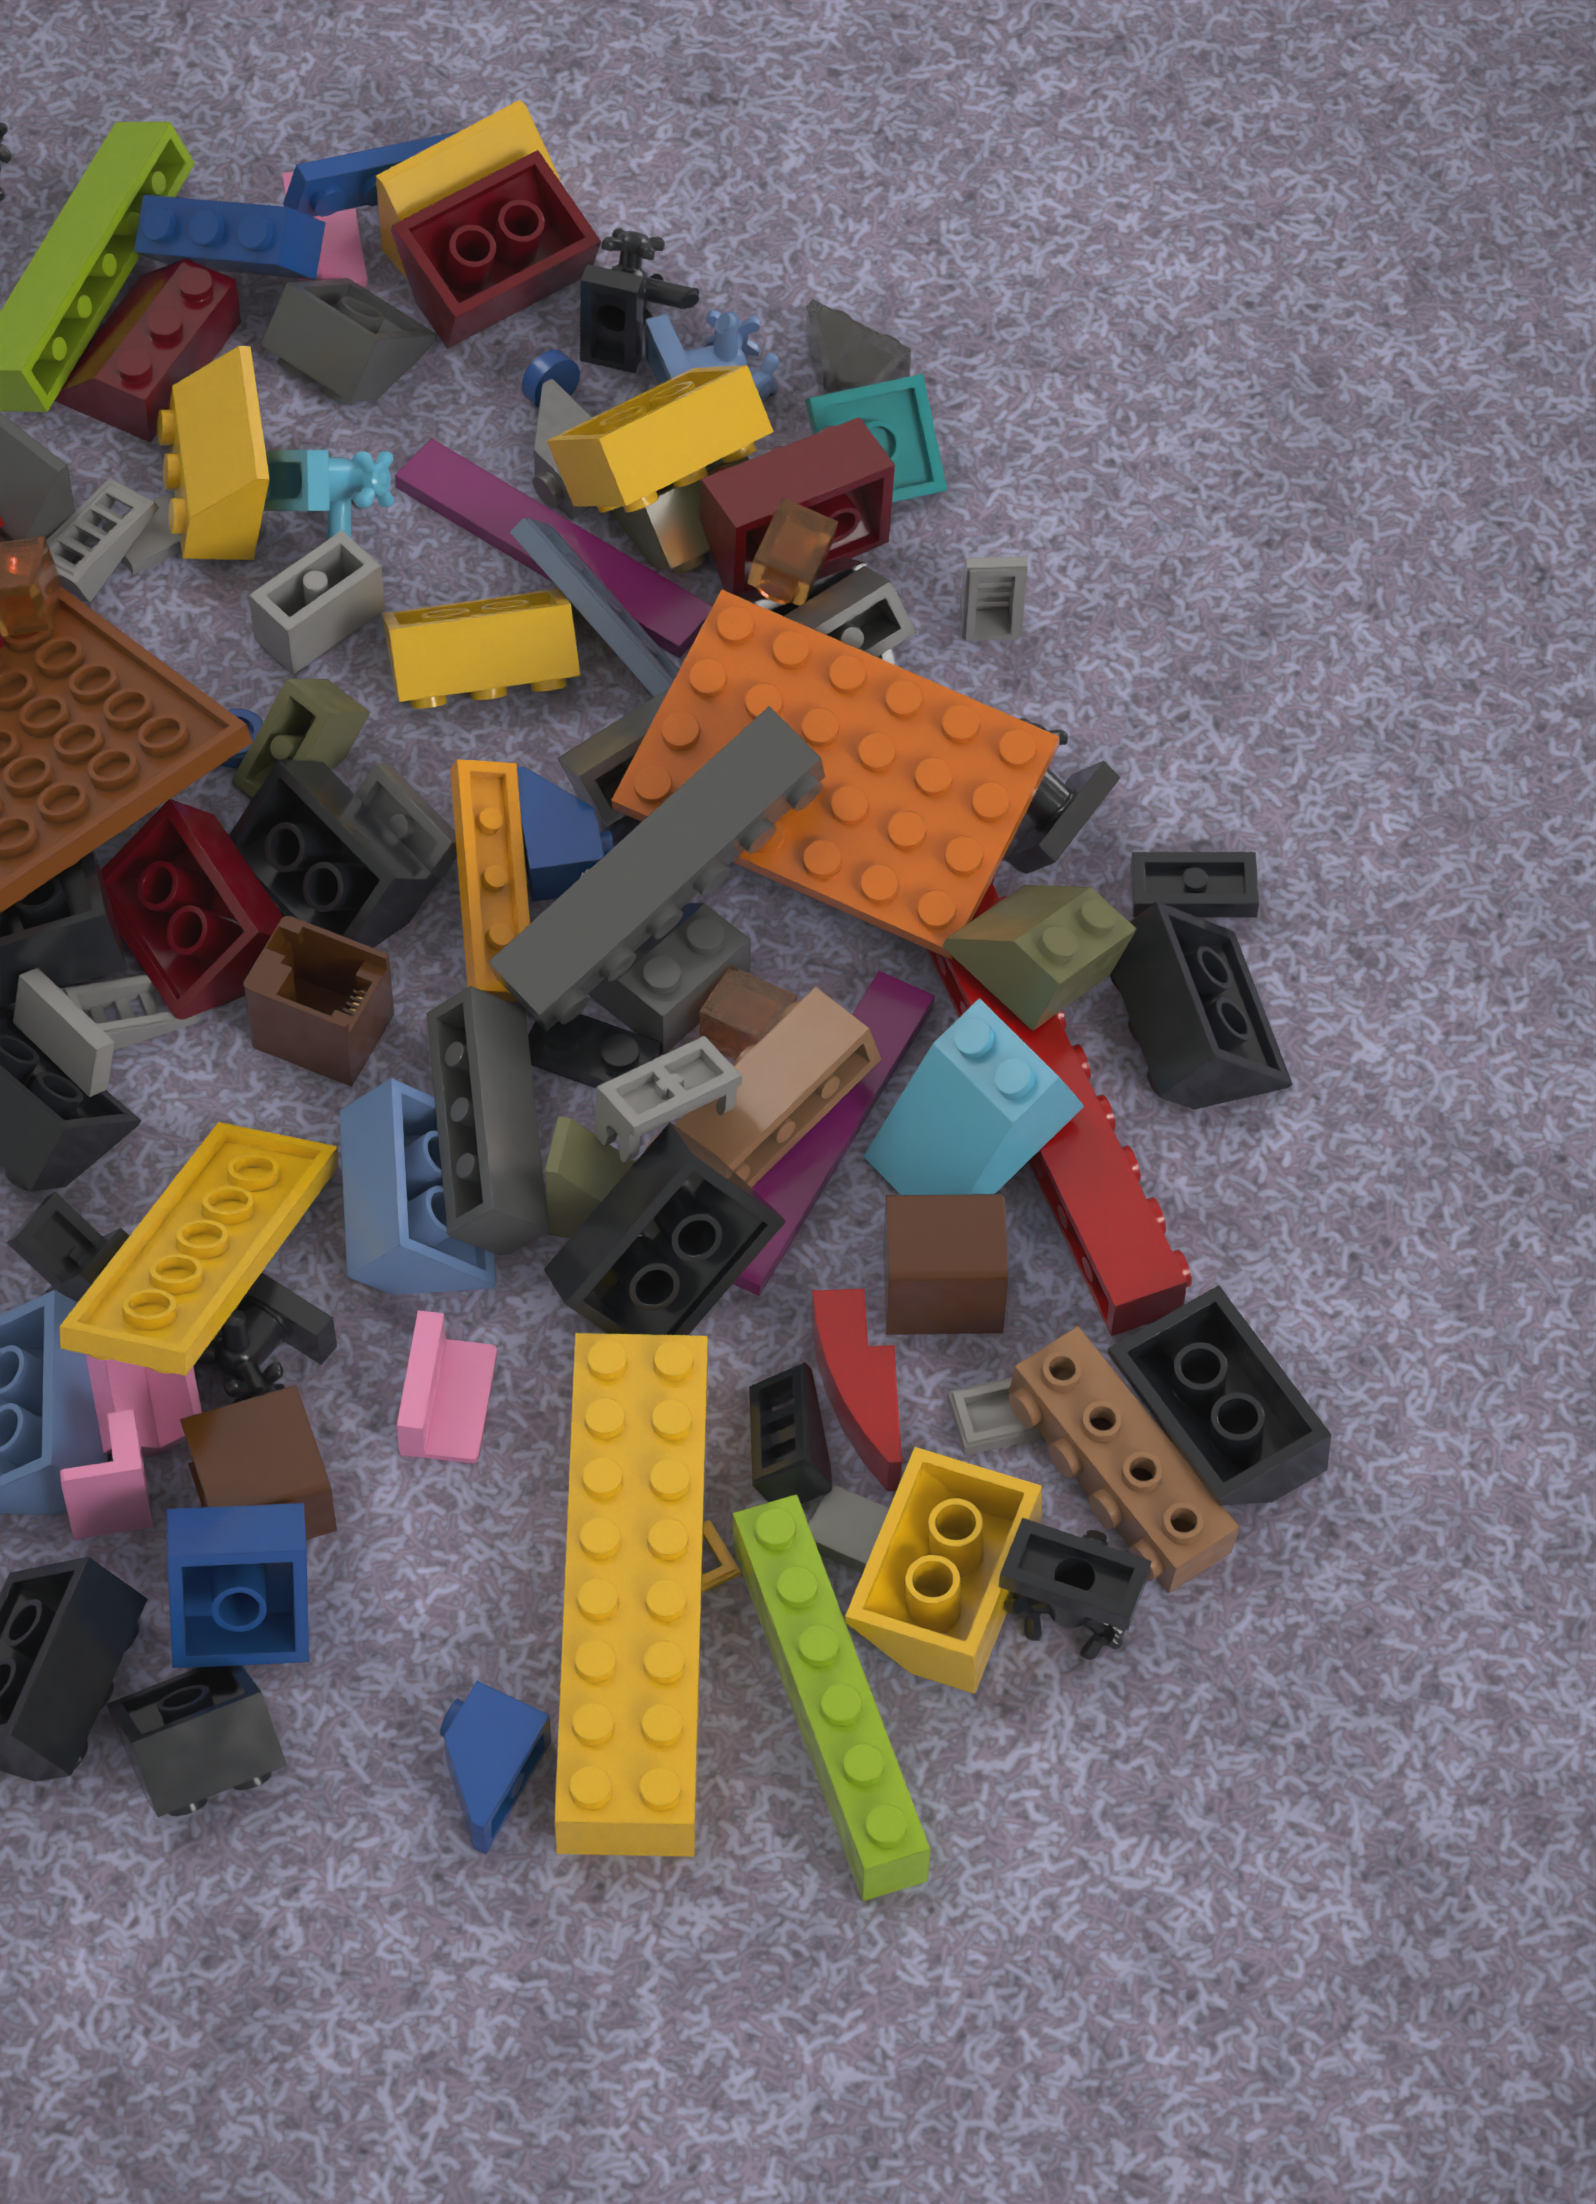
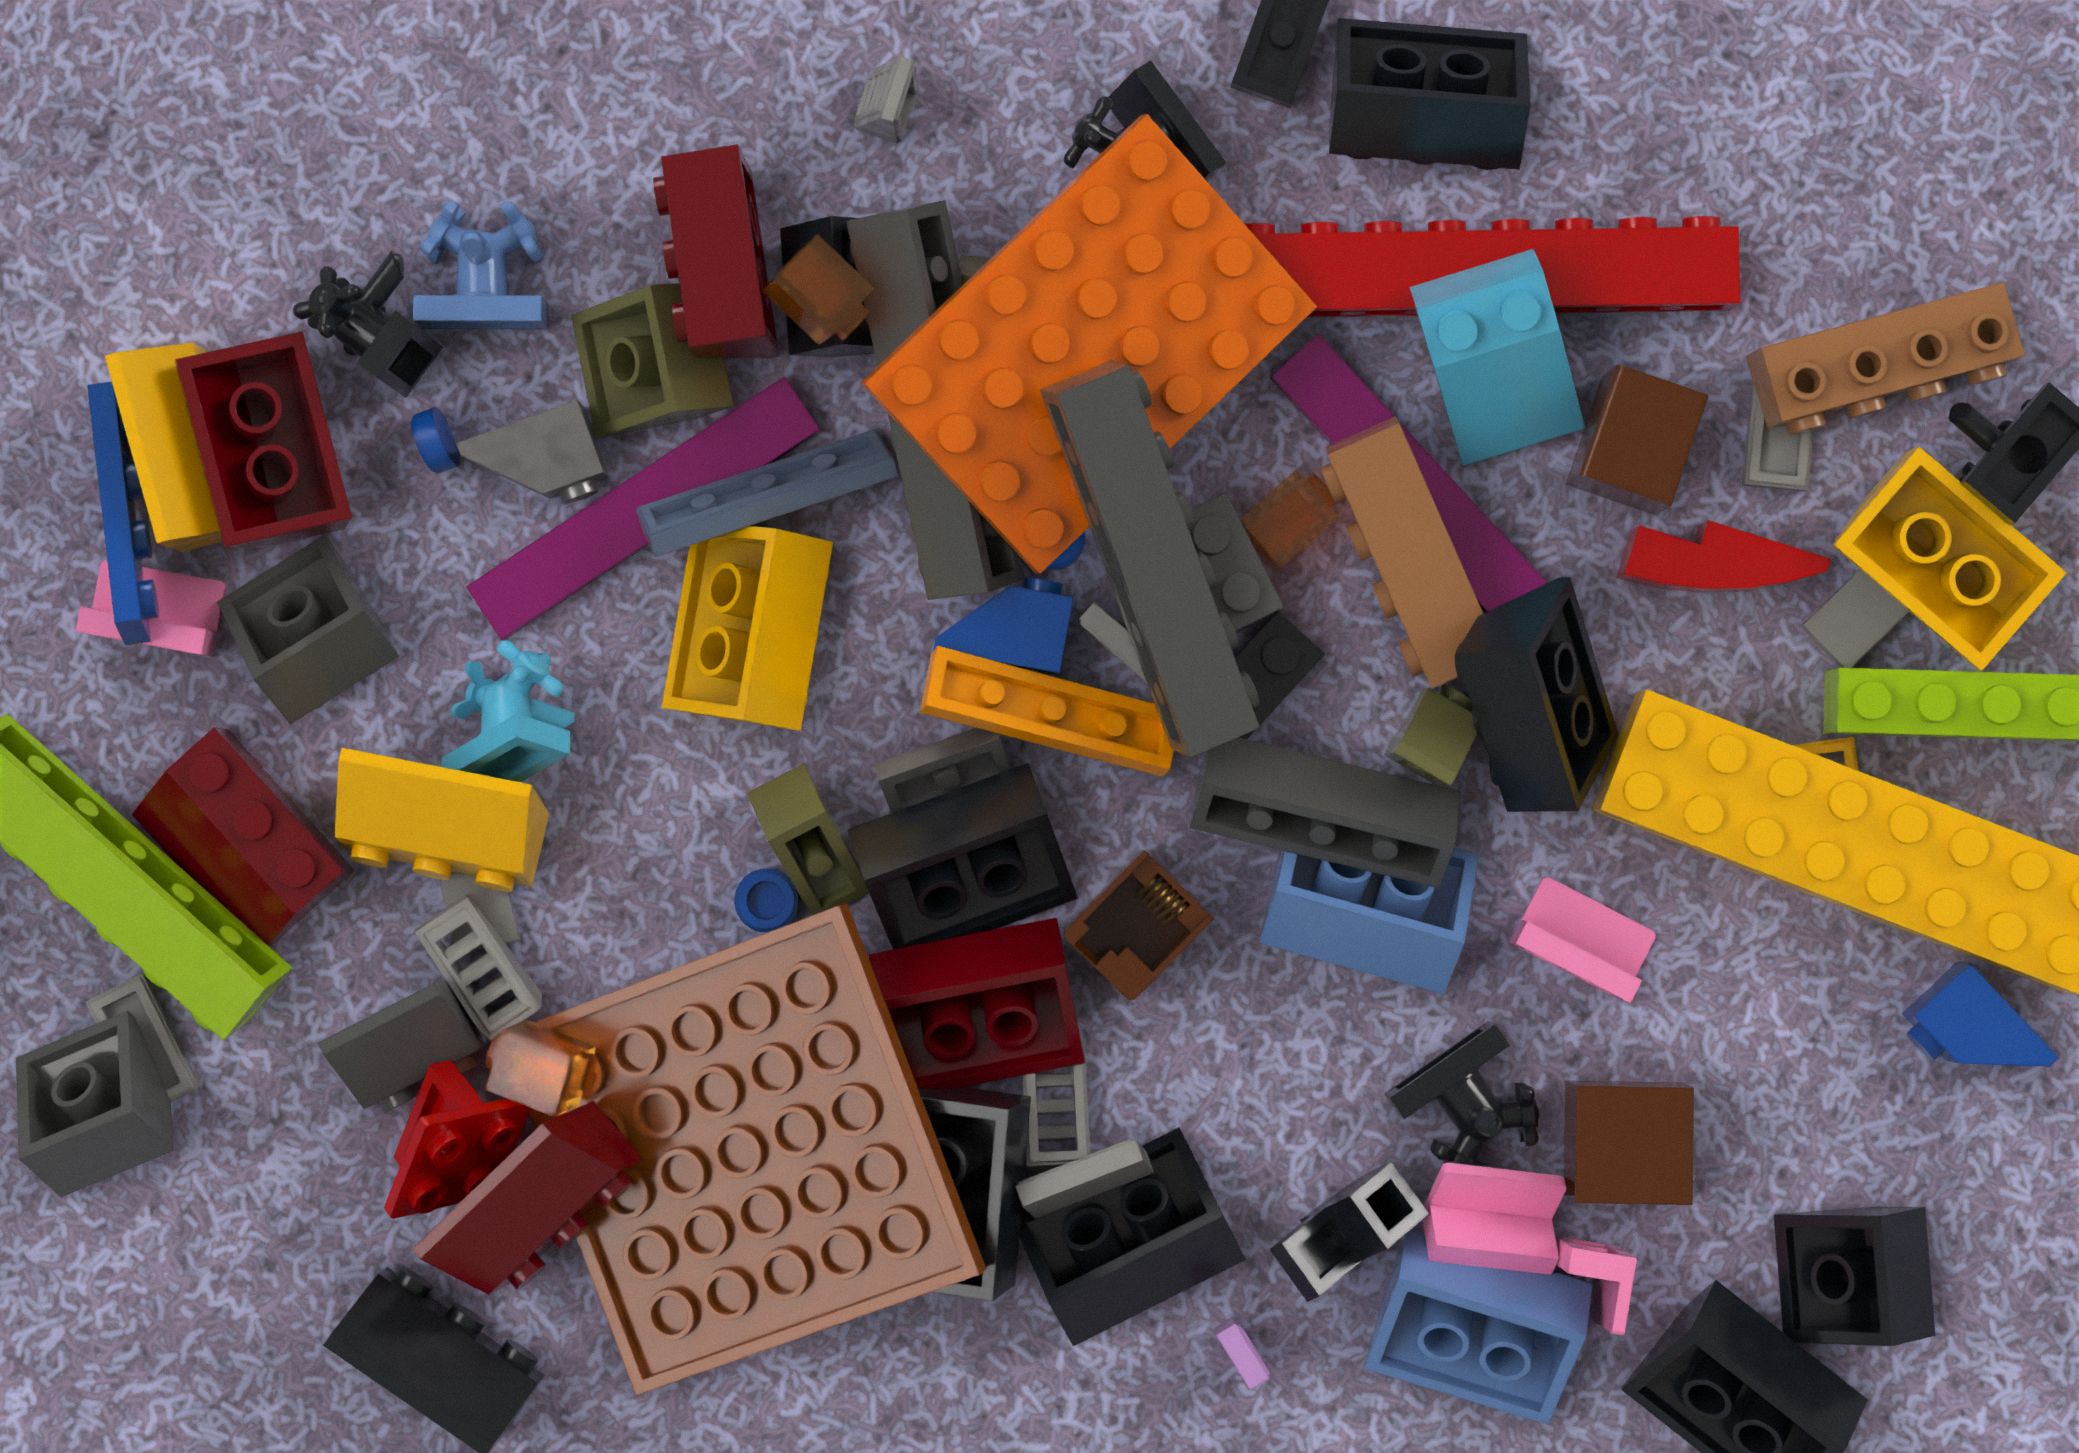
camera: 70 degrees left, 30 degrees up
(199, 1249) = (1402, 1129): yellow plate -> none
(230, 236) = (154, 716): blue brick -> none
(238, 1585) = (1751, 1198): blue brick -> none
(317, 602) = (650, 772): light grey brick -> none
(661, 438) = (605, 365): yellow brick -> none
(663, 1093) = (1423, 644): light grey hinge -> none
(808, 1467) = (1747, 626): black slope -> none
(850, 353) = (531, 126): clear smoke slope -> none
(899, 420) = (637, 123): teal plate -> none
(1042, 948) = (1343, 220): olive slope -> none
(1224, 1402) = (1872, 247): black slope -> none

